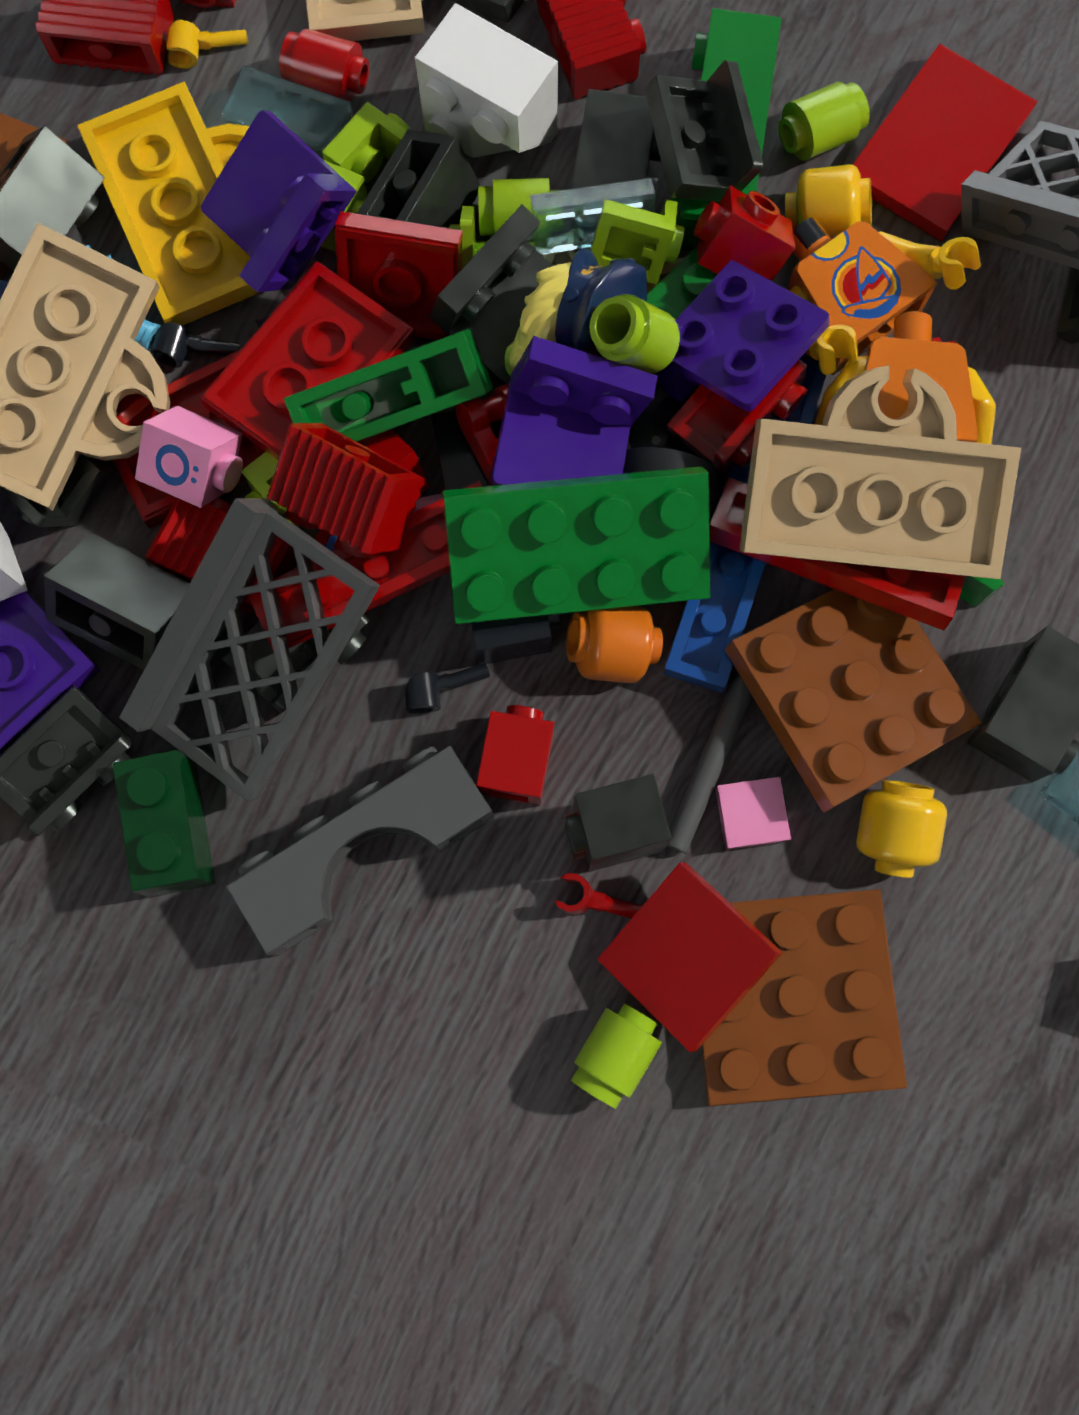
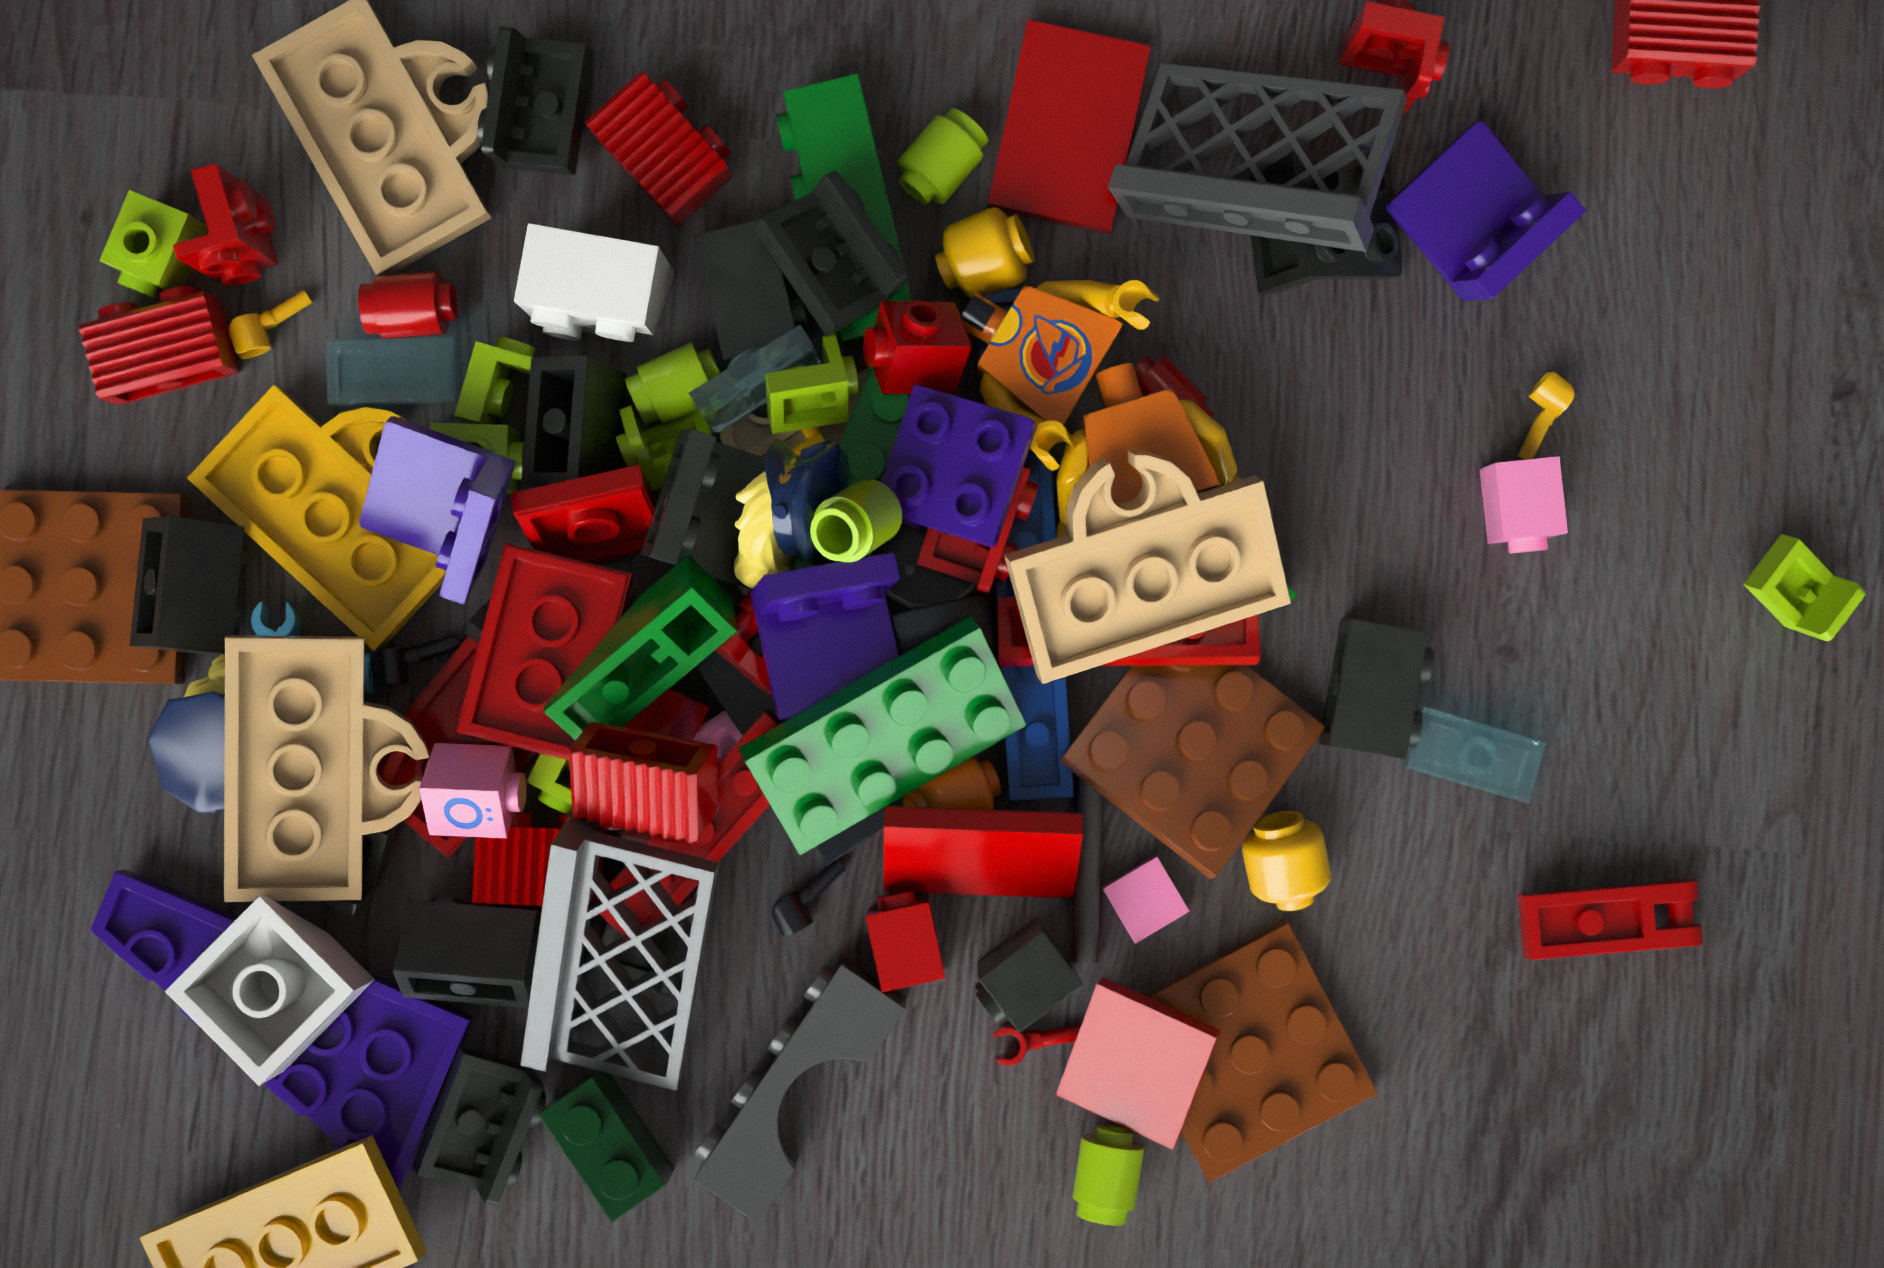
camera: 25 degrees left, 10 degrees up
(622, 697) = (982, 851): none -> red tile

